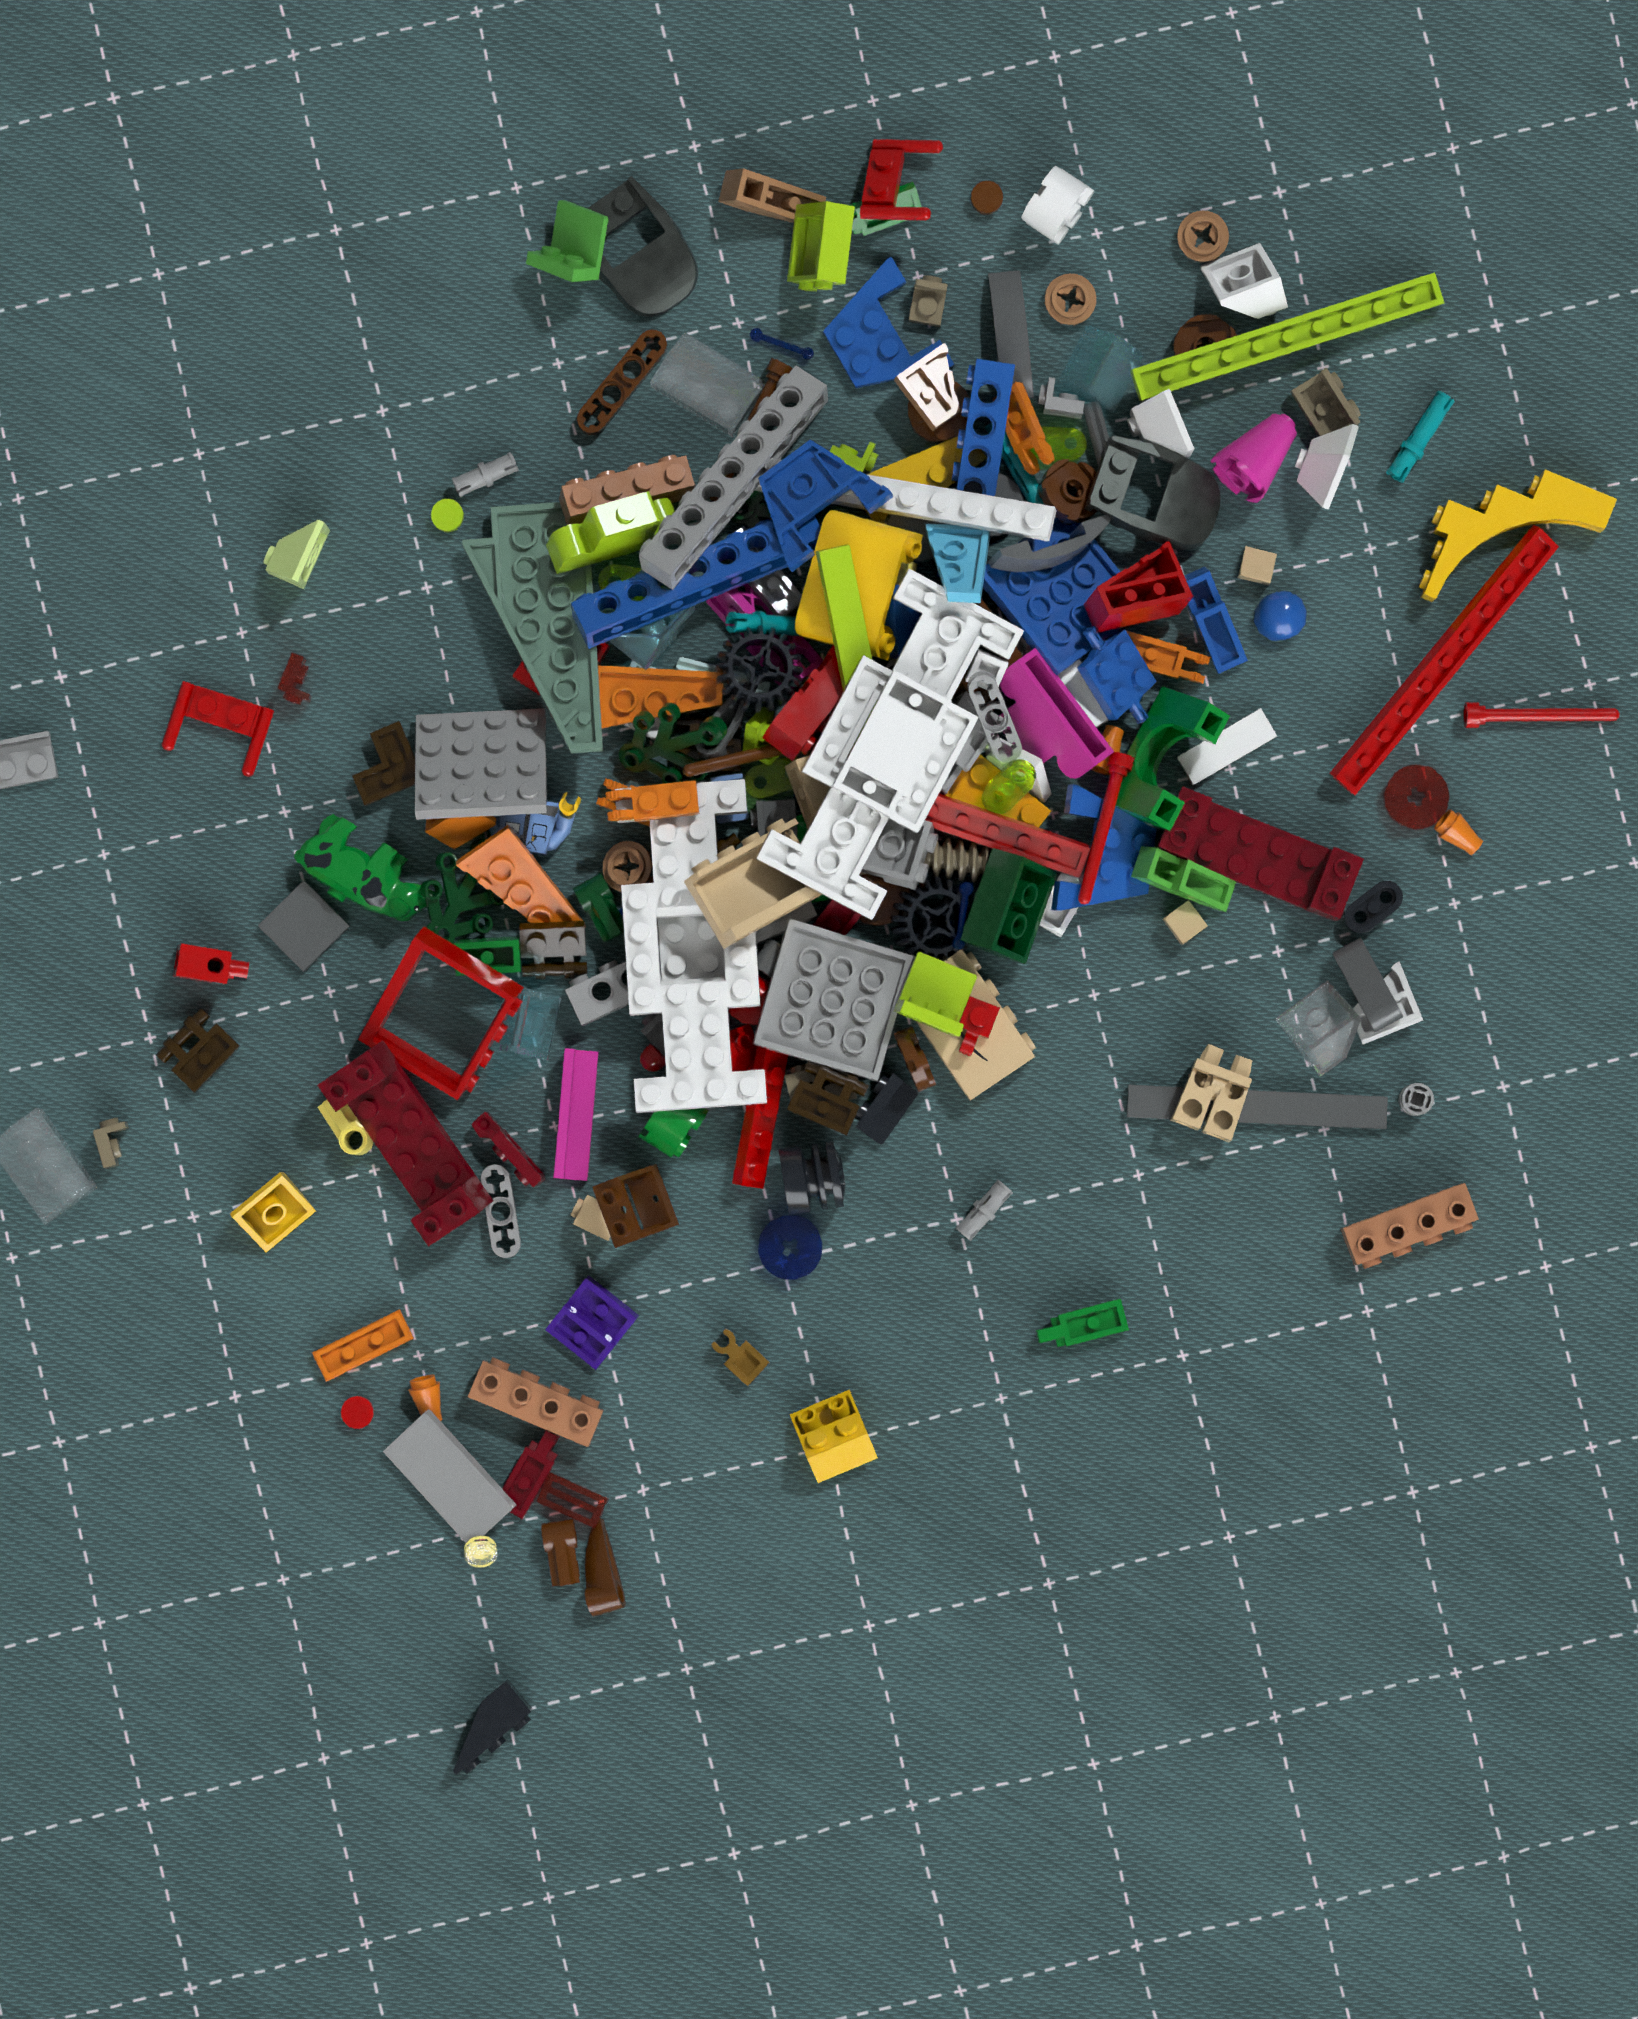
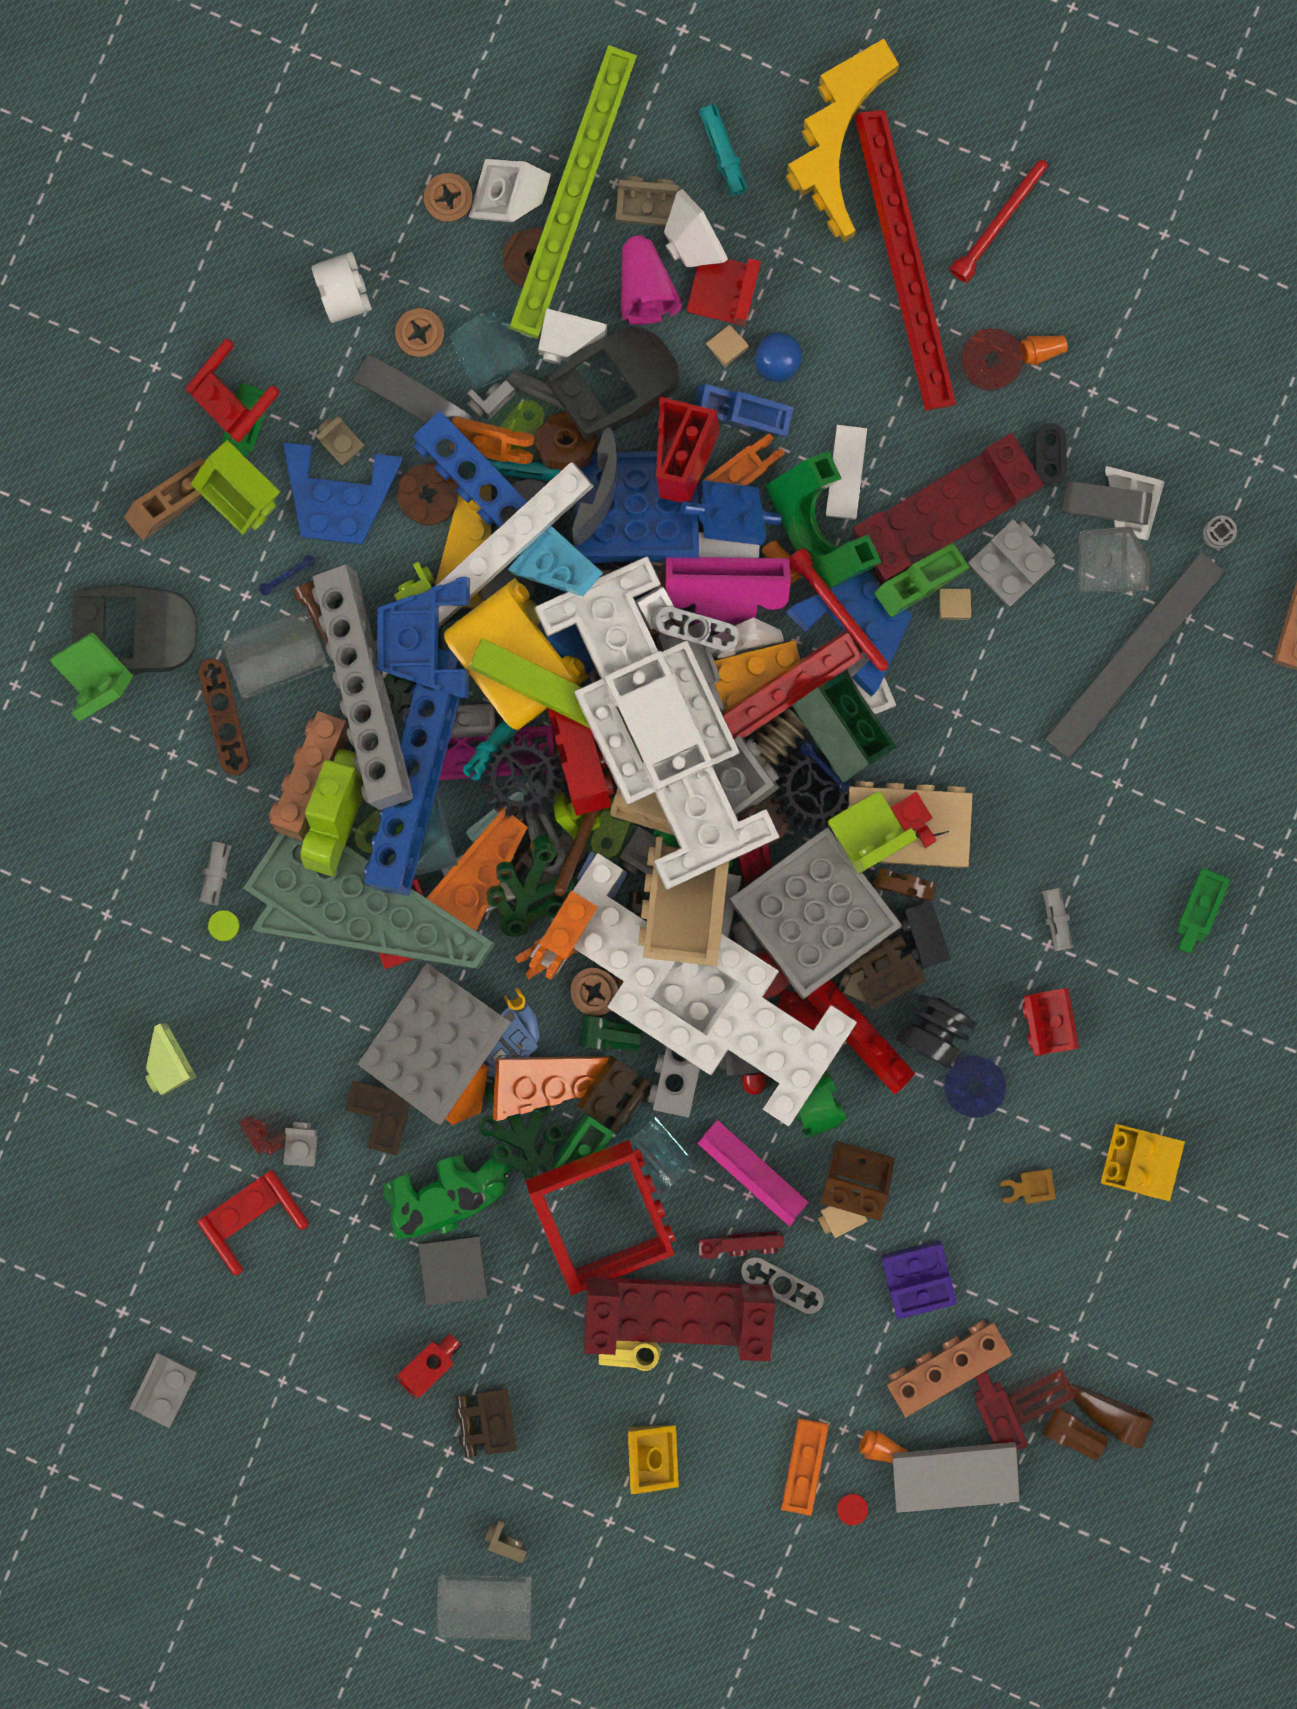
camera: 55 degrees left, 0 degrees up
(312, 719) = (300, 1144): none -> light grey bracket
(480, 1551) = (1028, 1495): clear tile -> none
(496, 1715) = (1162, 1576): black slope -> none
(892, 1269) = (1050, 1022): none -> red bracket
(931, 388) = (407, 488): wing -> none
(986, 197) = (294, 337): reddish brown tile -> none
(1010, 784) = (754, 655): clear neon green plate -> none
(1216, 1084) = (1097, 673): tan hips -> none
(1257, 944) = (1012, 562): none -> light grey plate
(1301, 528) = (724, 291): none -> red bracket

